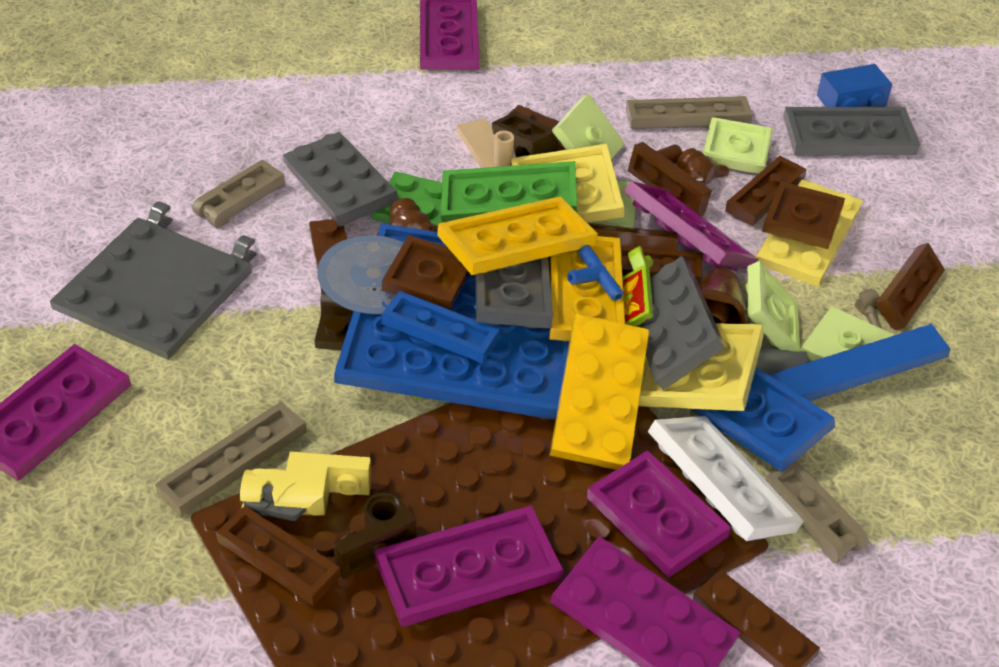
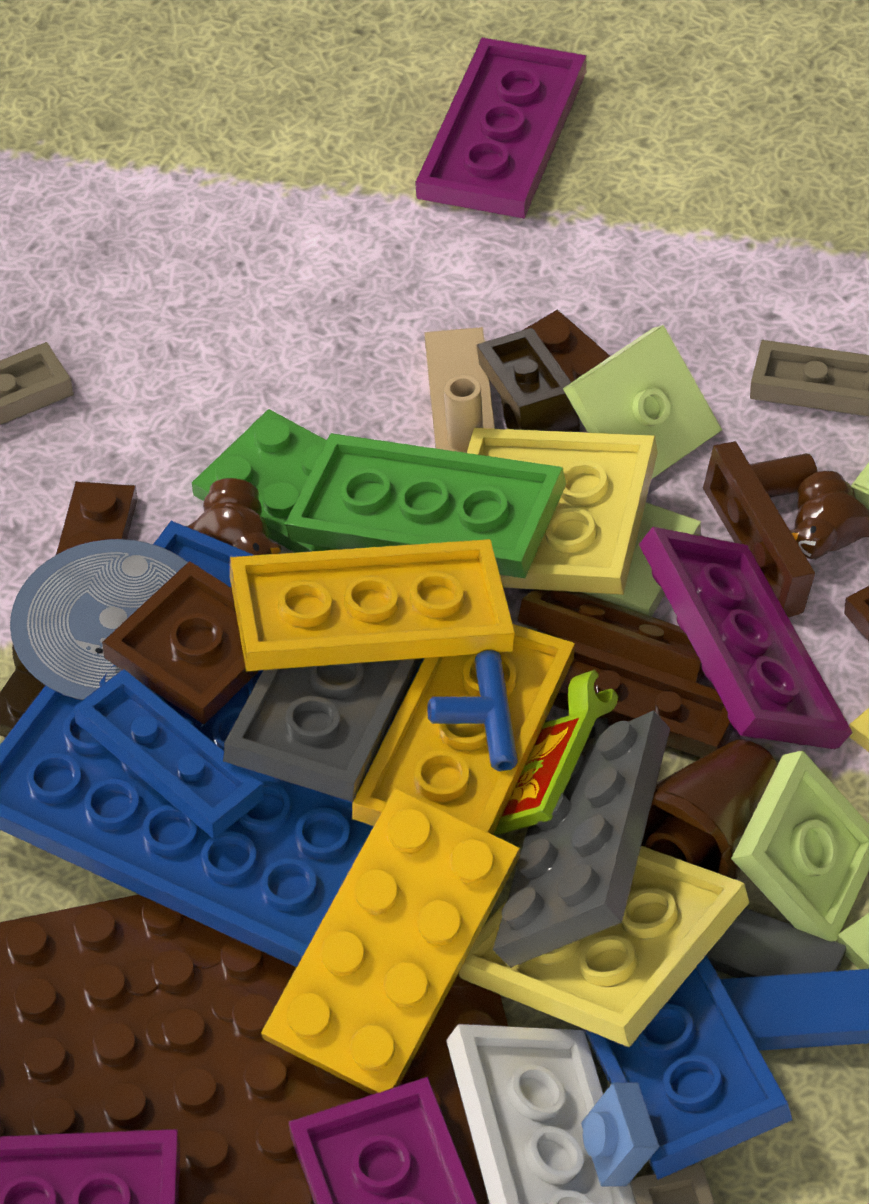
camera: 25 degrees right, 5 degrees up
(340, 178) = (163, 406): dark grey plate -> none
(756, 453) = (619, 1134): none -> medium blue plate

